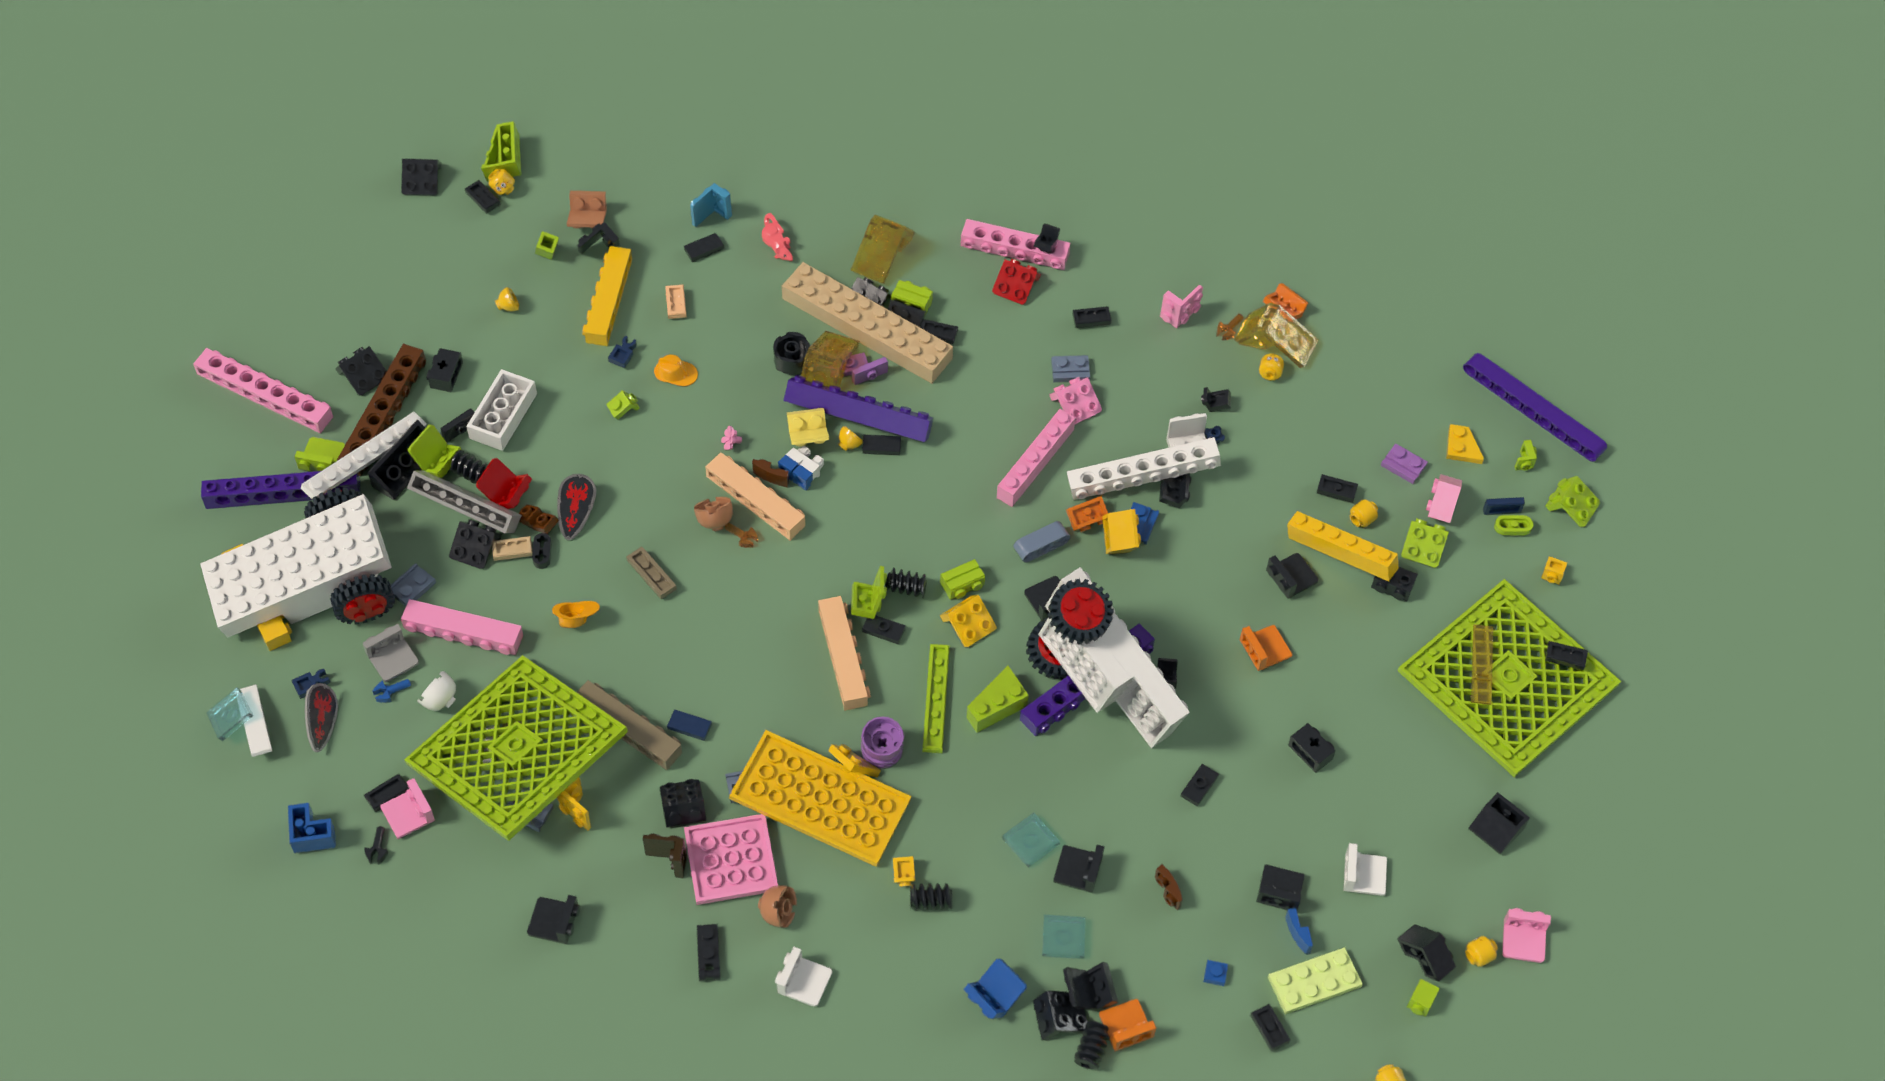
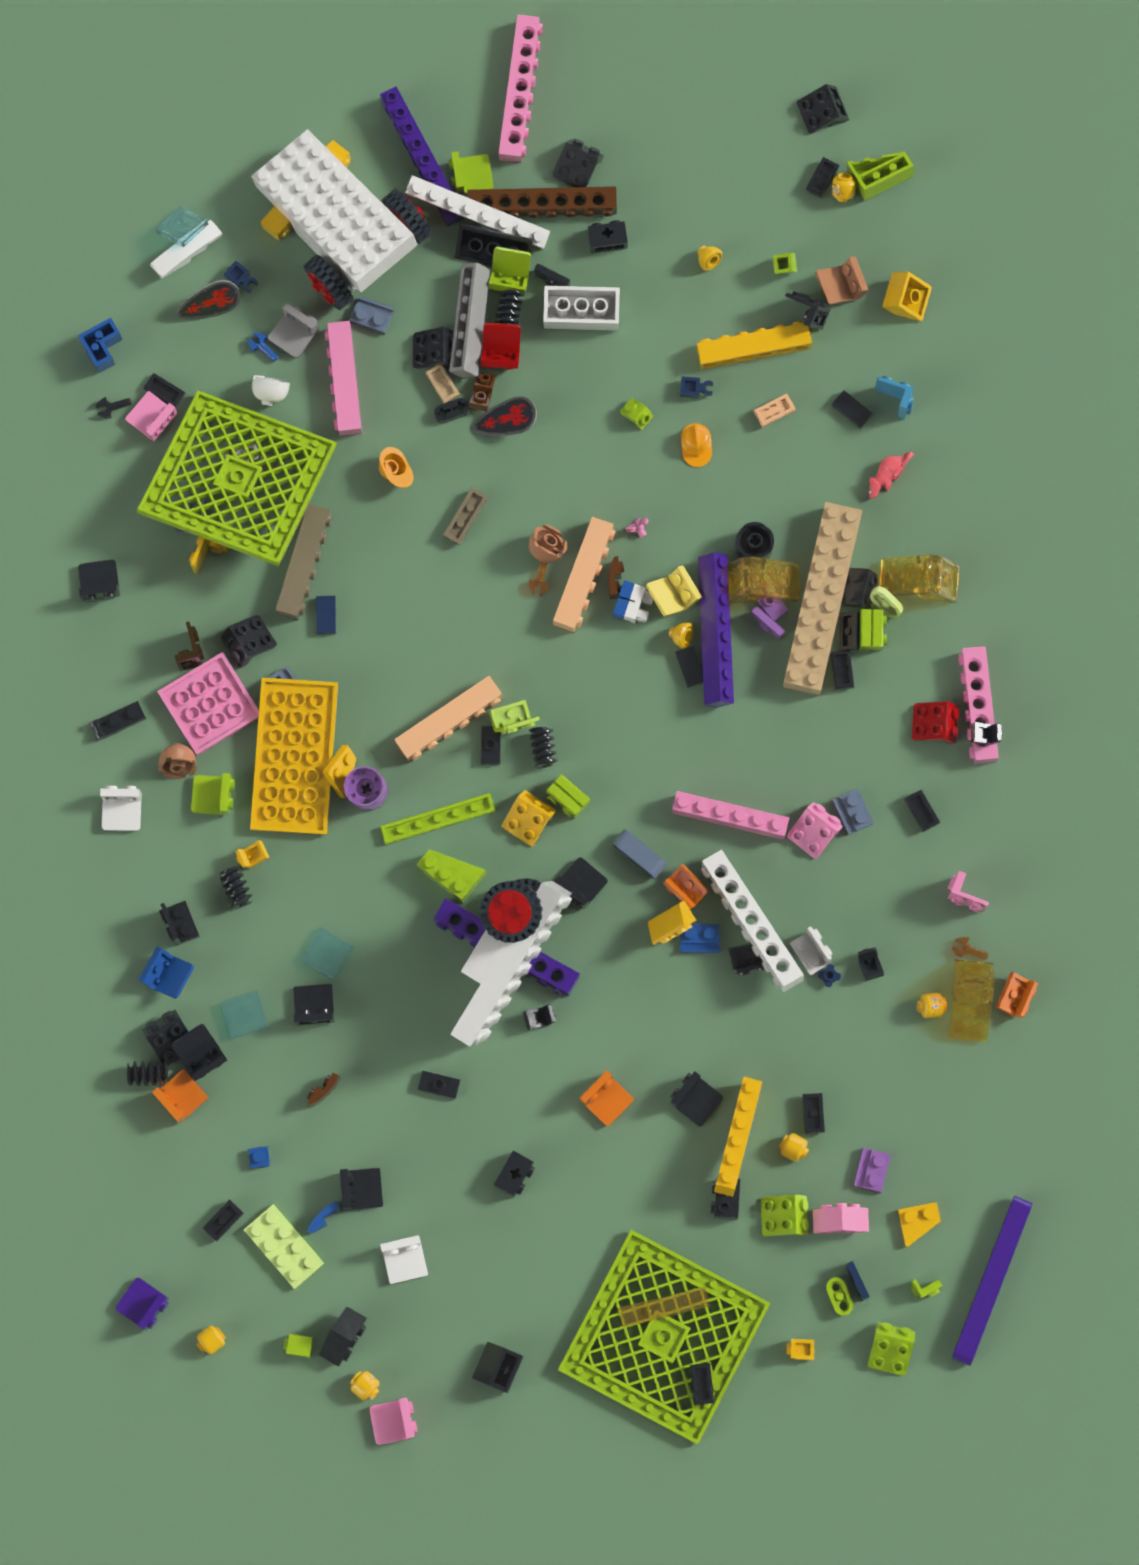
camera: 75 degrees right, 20 degrees up
(623, 173) = (907, 296): none -> yellow slope
(826, 885) = (212, 794): none -> lime bracket
(889, 276) = (887, 602): none -> yellowish green plate
(945, 964) = (180, 922): none -> black bracket

